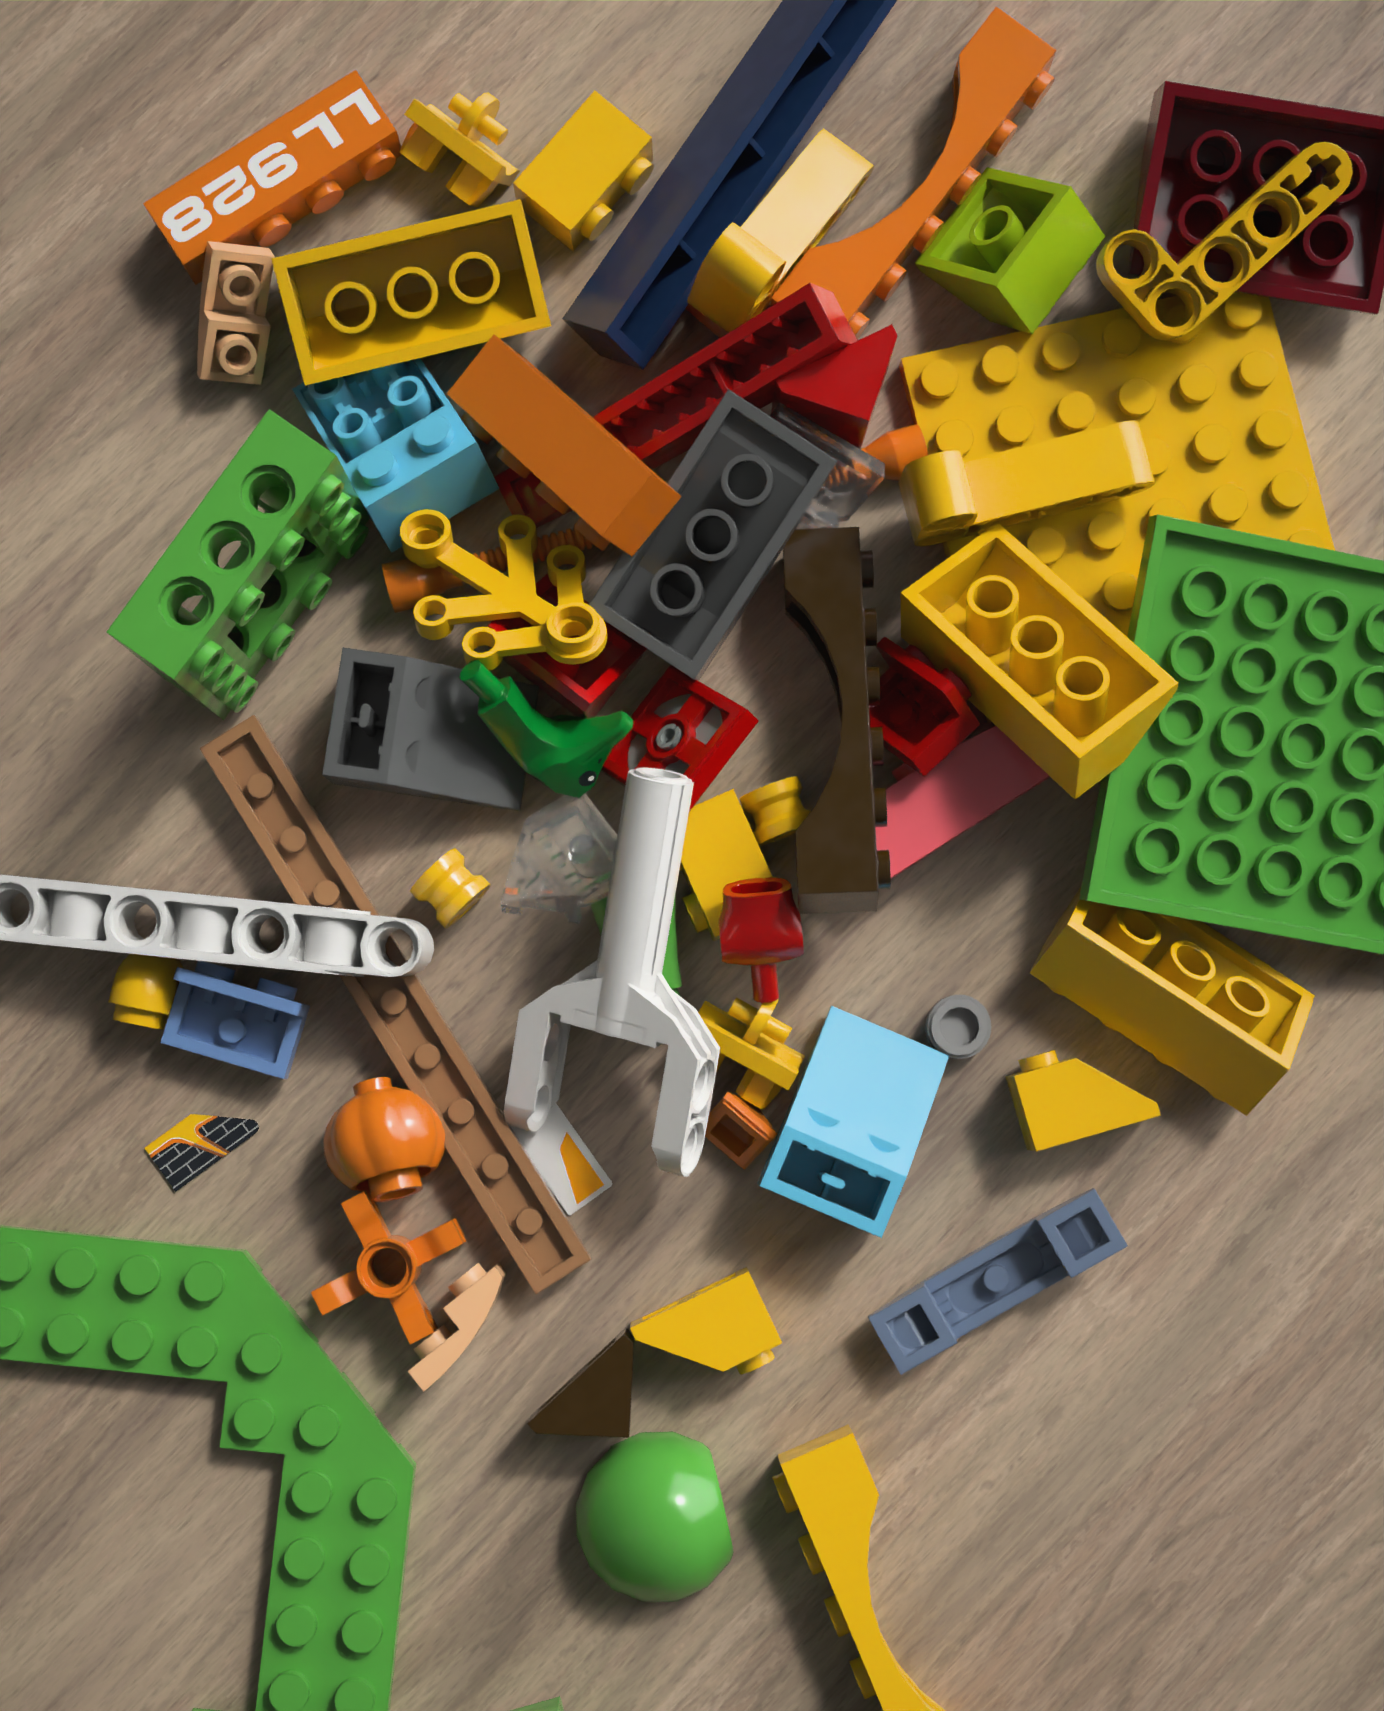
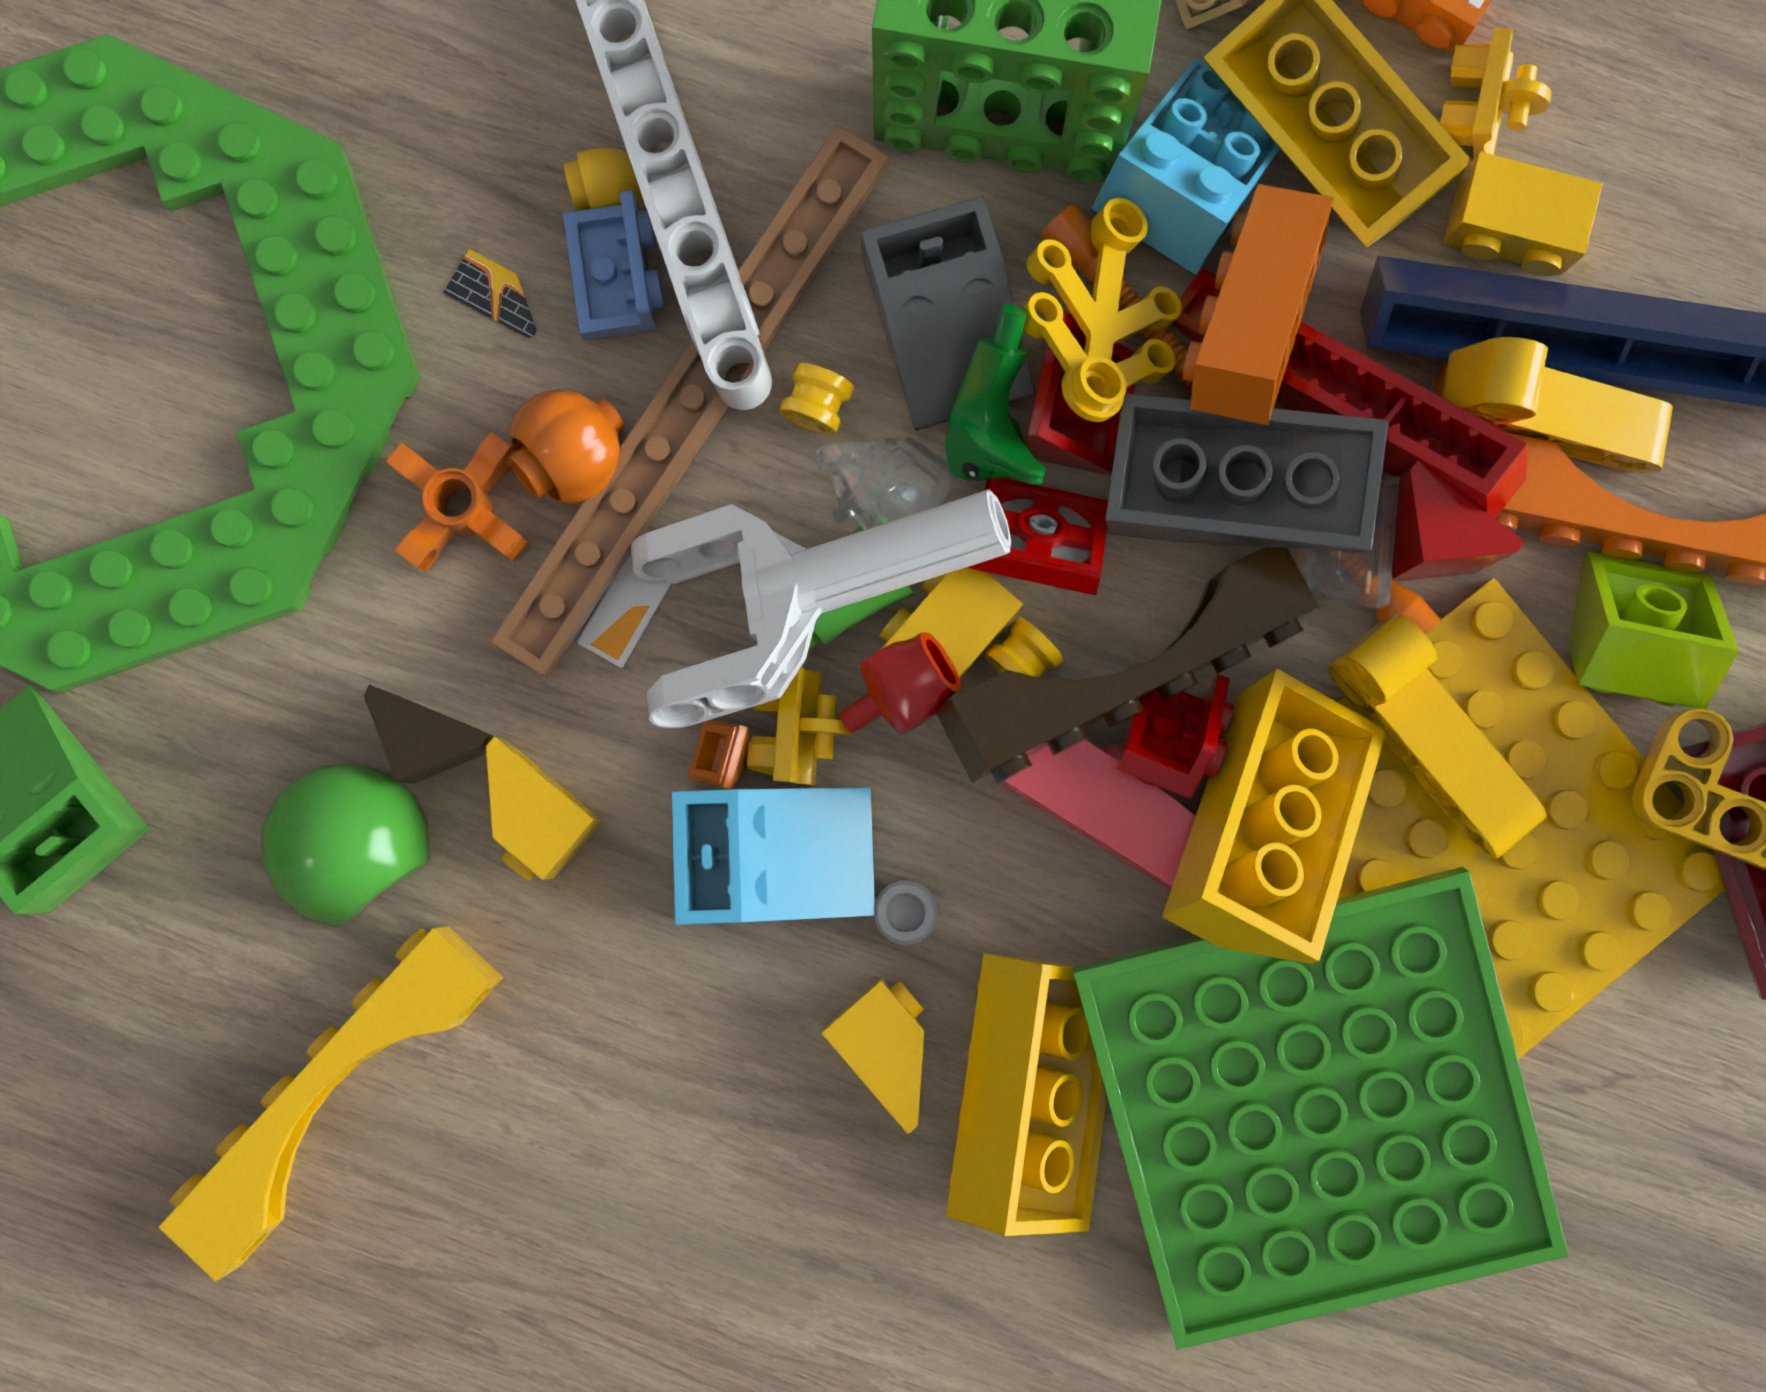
camera: 70 degrees right, 0 degrees up
(473, 1302) = (446, 590): light nougat slope -> none
(996, 1279) = (691, 1051): sand blue slope -> none

